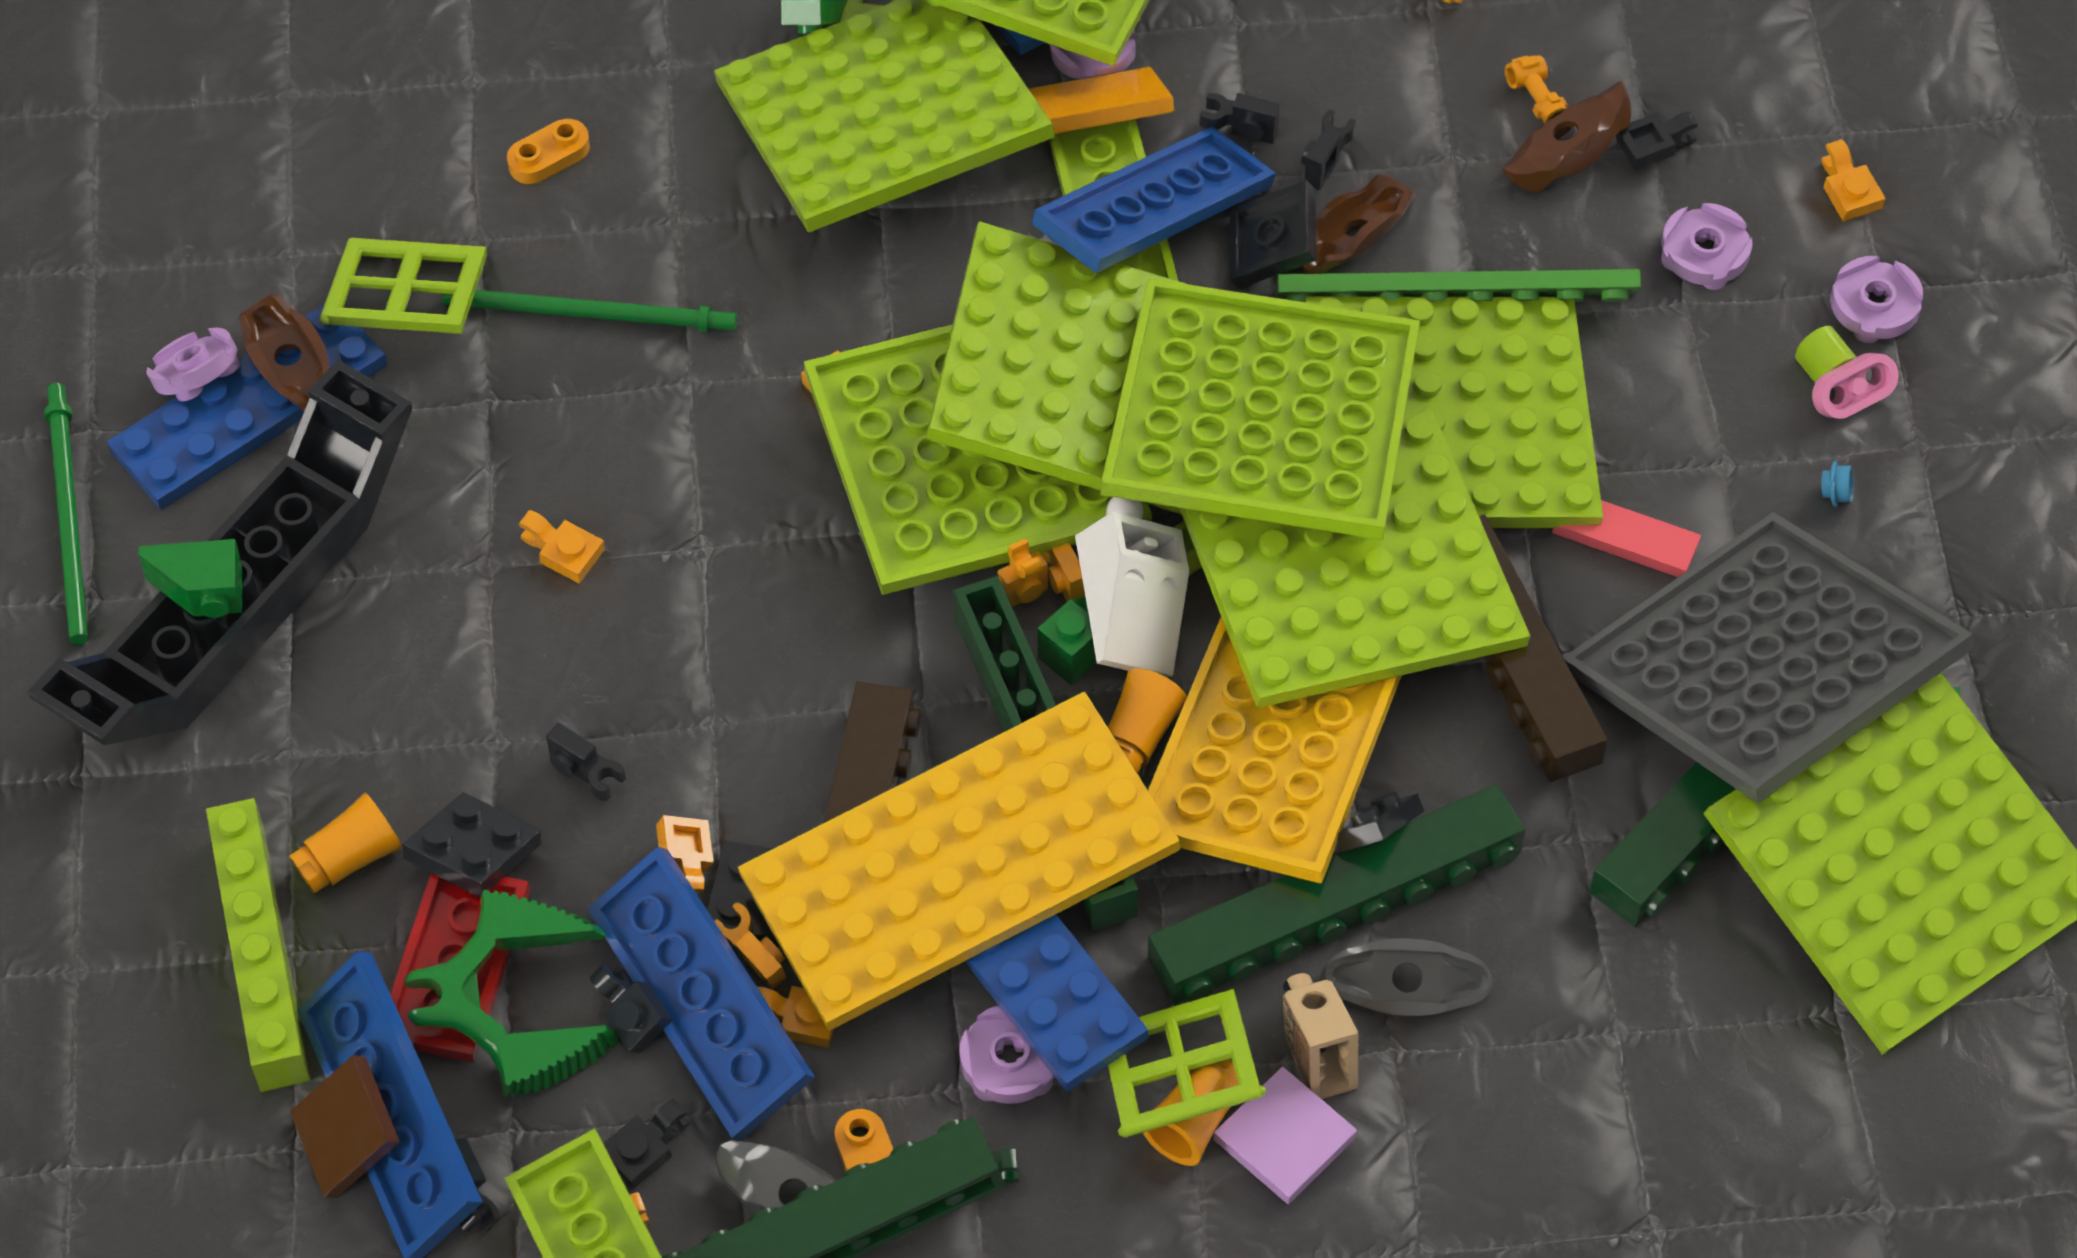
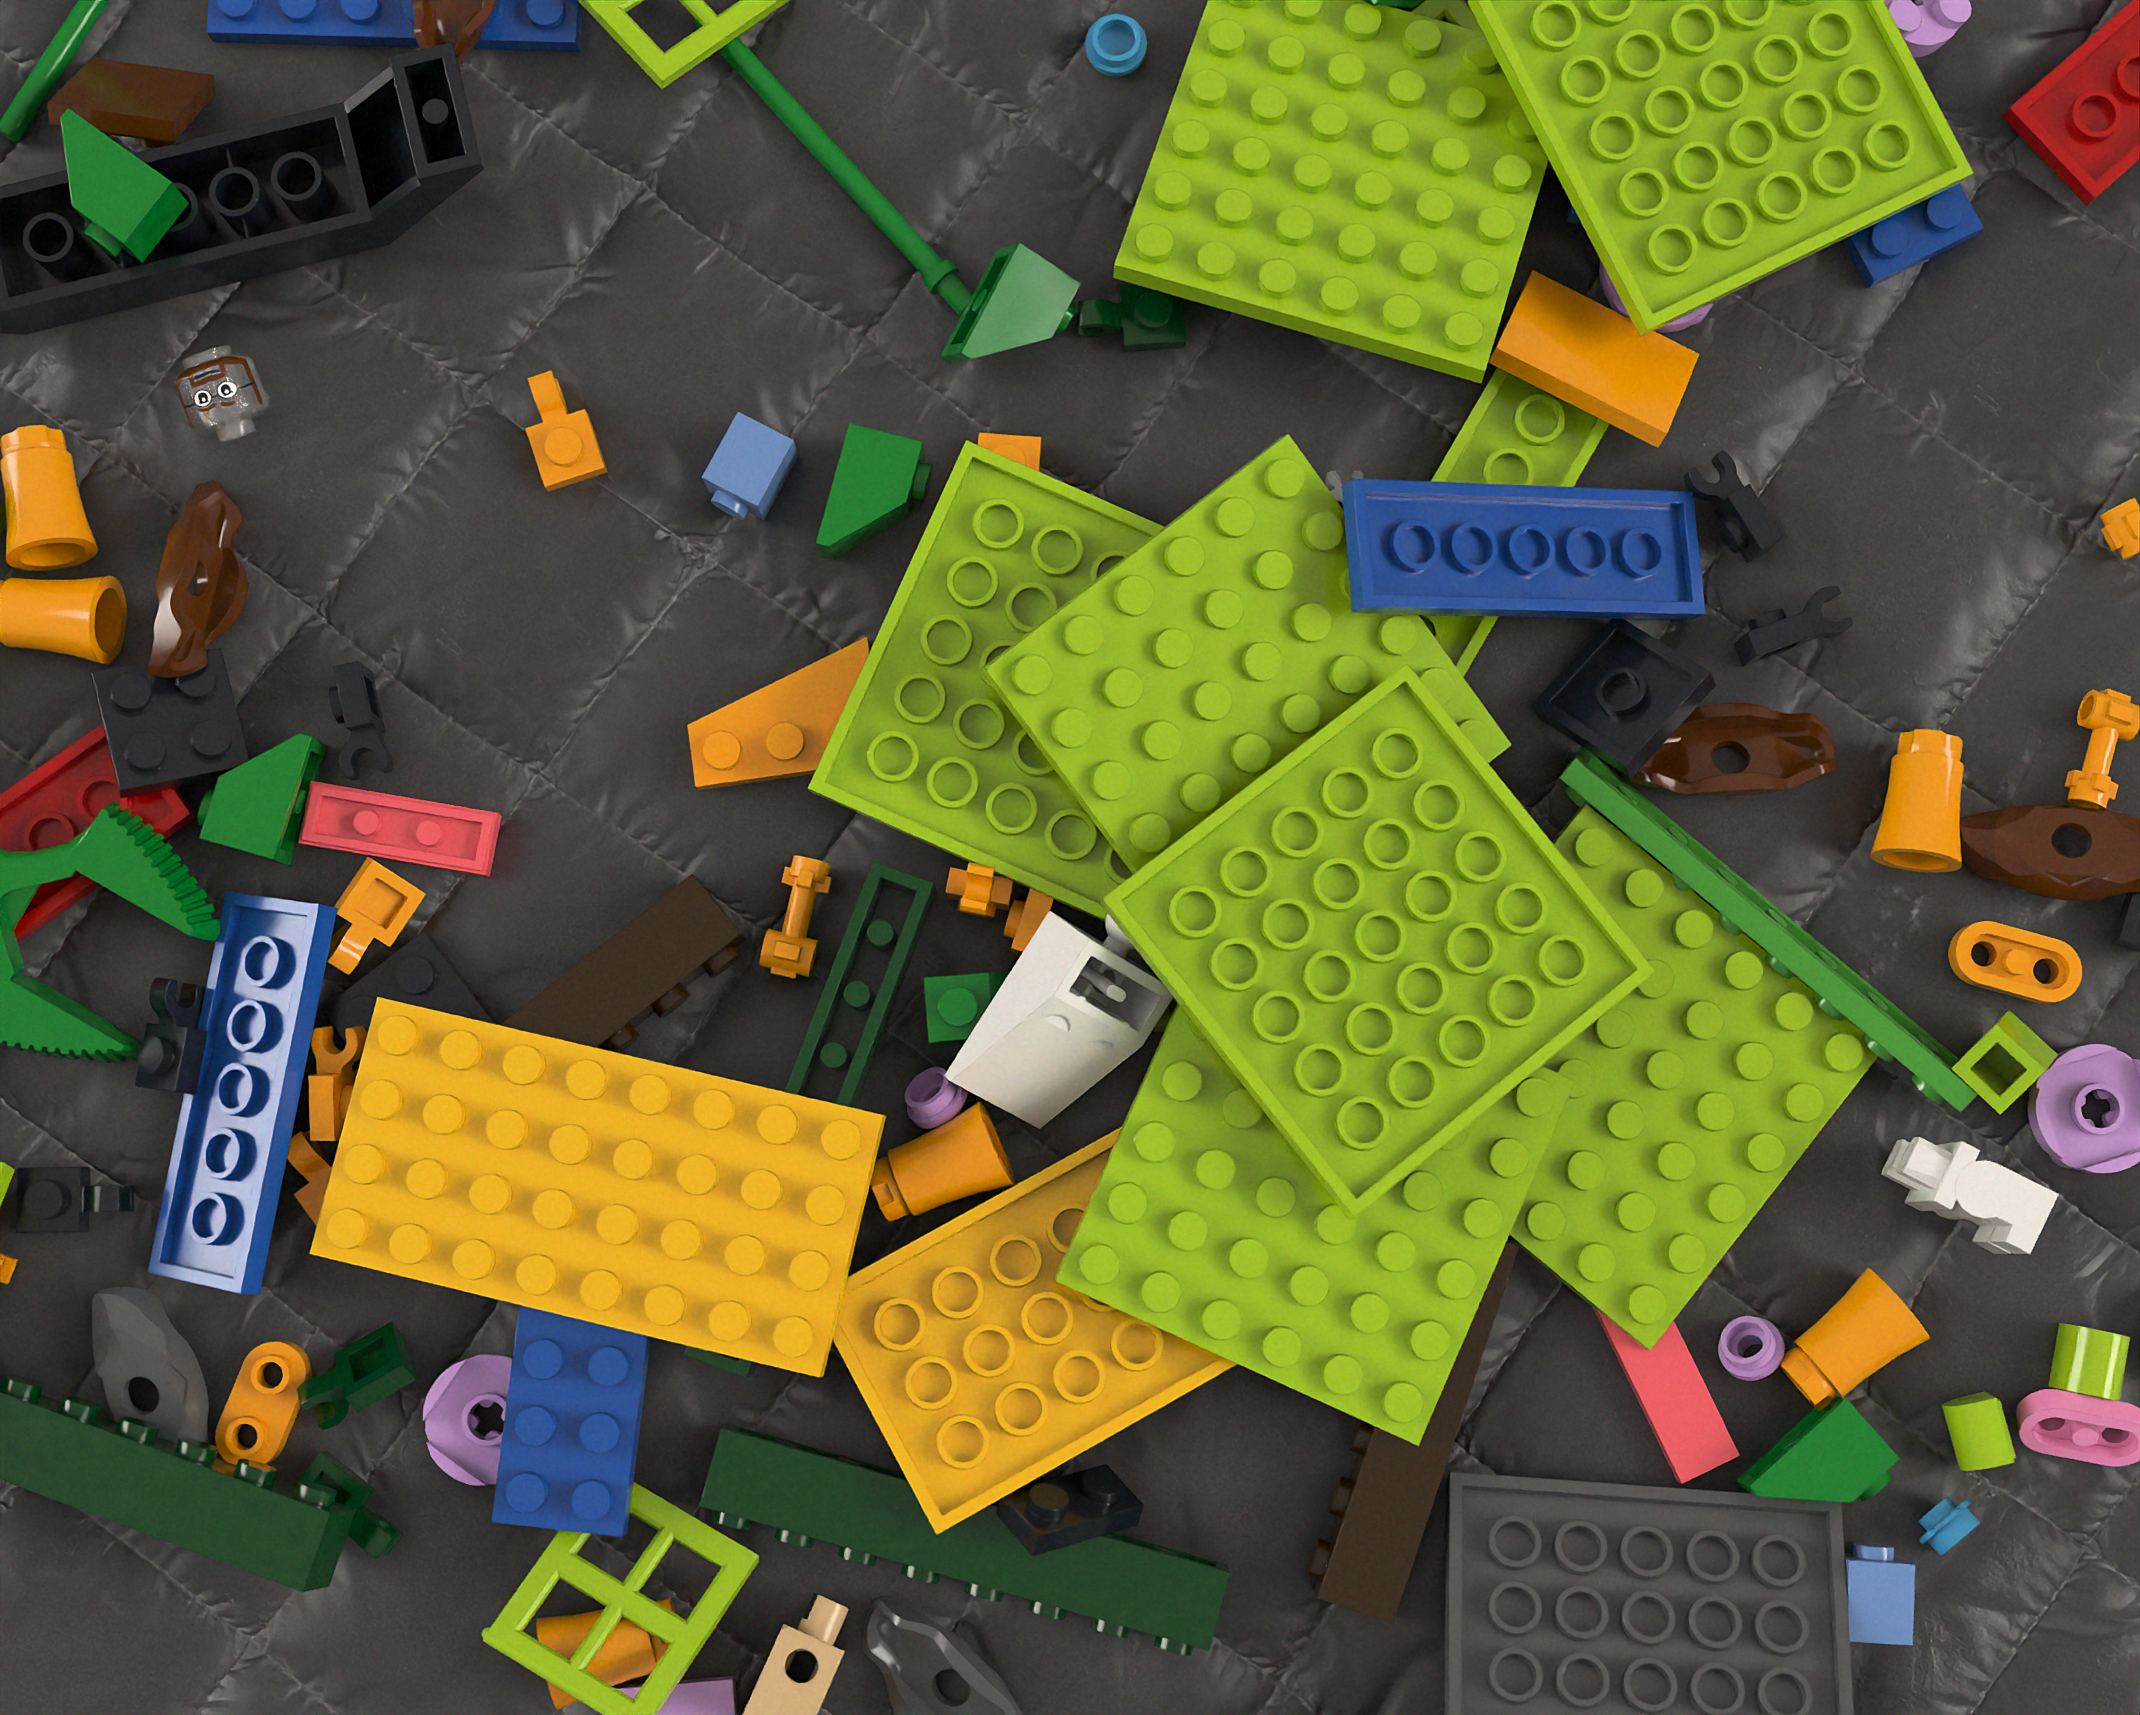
camera: 40 degrees right, 25 degrees up
(126, 566) = (134, 100): none -> reddish brown tile
(285, 793) = (43, 502): none -> light orange plant
(341, 663) = (221, 393): none -> clear head
(427, 762) = (200, 544): none -> reddish brown piece
(566, 847) = (263, 801): none -> green slope
(678, 794) = (400, 829): none -> coral tile
(689, 477) = (749, 468): none -> medium blue brick
(693, 147) = (1116, 45): none -> dark azure plate
(761, 294) = (1014, 305): none -> green slope
(767, 437) = (871, 488): none -> green slope
(831, 593) = (778, 727): none -> light orange wing
(834, 258) = (1141, 316): none -> dark green plate
(913, 1083) = (363, 1375): none -> dark green plate
(944, 691) = (789, 950): none -> light orange bar
(1103, 693) = (933, 1098): none -> lavender plate
(1477, 175) = (1922, 805): none -> light orange plant
(1593, 210) = (2012, 962): none -> light orange plate
(1638, 247) = (2004, 1062): none -> lime brick
(1652, 480) = (1742, 1334): none -> lavender plate
(1684, 316) = (1983, 1192): none -> white hips
(1699, 432) = (1852, 1341): none -> light orange plant
(1745, 495) = (1824, 1459): none -> green slope
(1807, 426) = (1978, 1432): none -> lime brick
(1842, 532) = (1879, 1595): none -> medium blue brick

